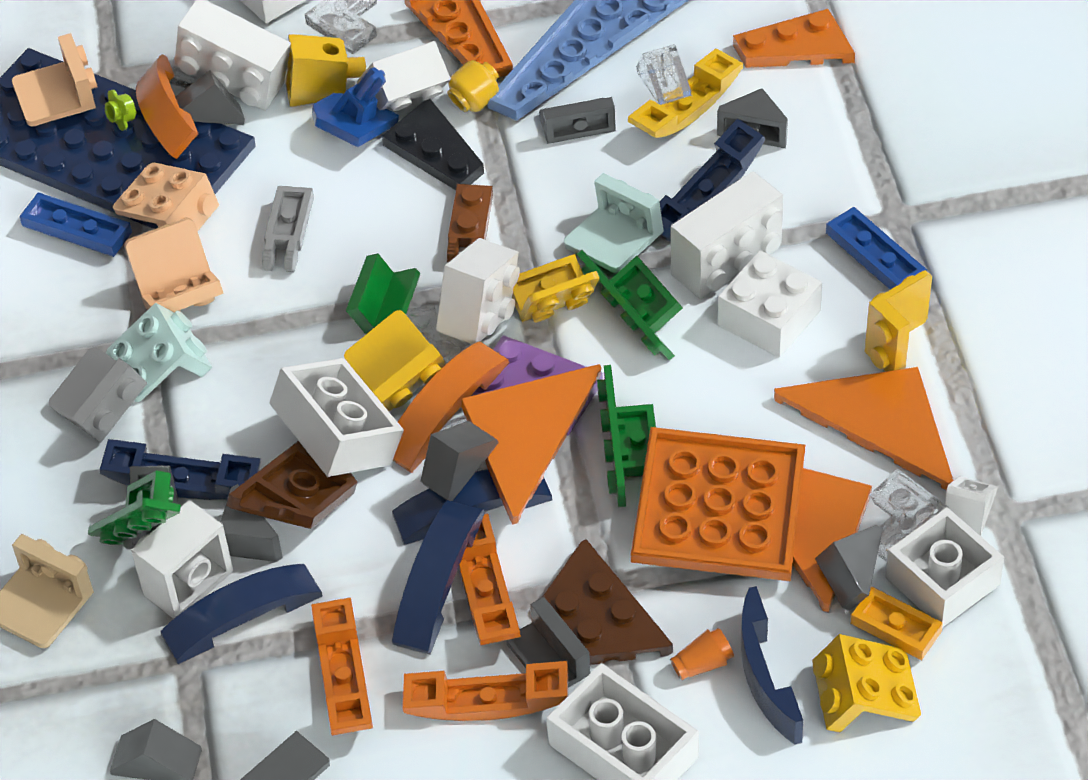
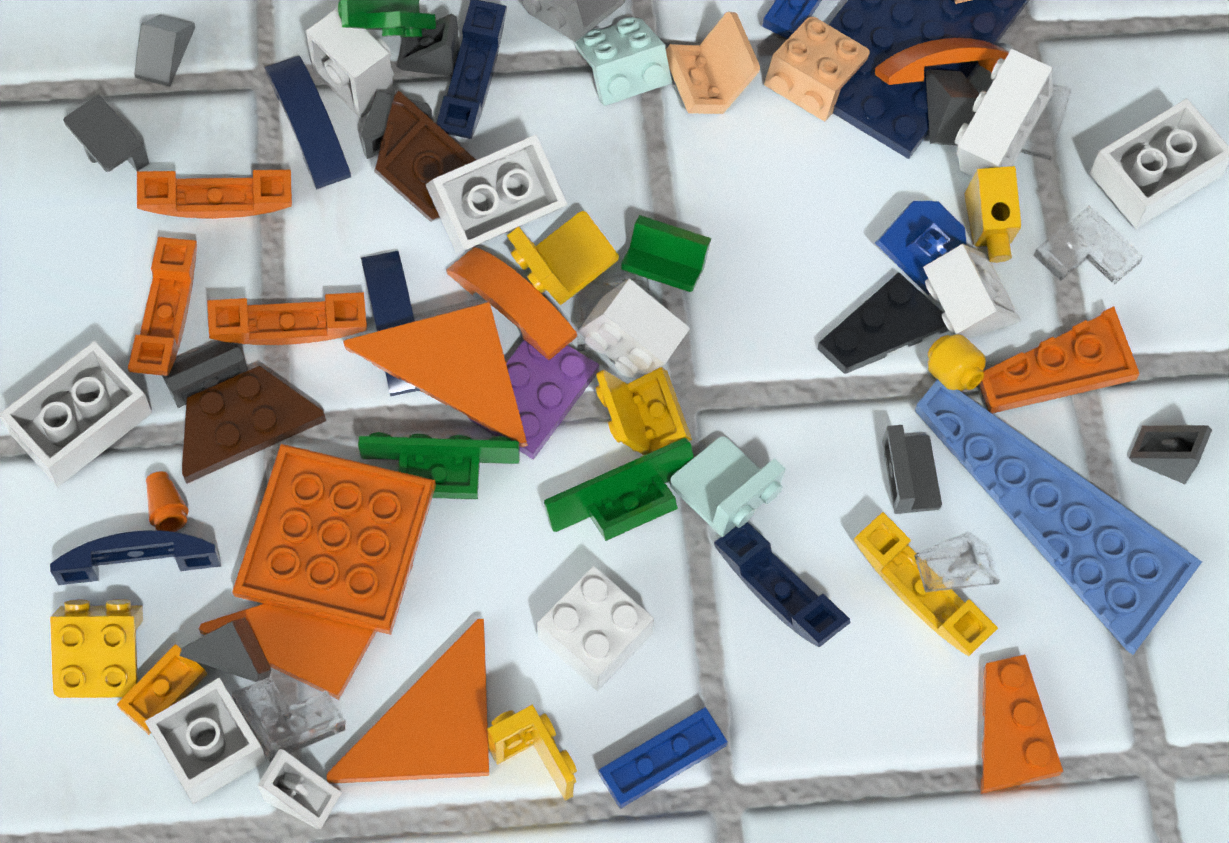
camera: 90 degrees right, 15 degrees up
(120, 109) = (942, 20): lime plate -> none
(287, 225) = (777, 176): light grey hinge -> none
(433, 574) = (304, 271): dark blue slope -> none
(455, 457) = (420, 294): dark grey slope -> none
(469, 217) = (764, 349): dark orange hinge -> none
(726, 234) = (687, 591): white brick -> none
(757, 112) = (883, 657): dark grey slope -> none

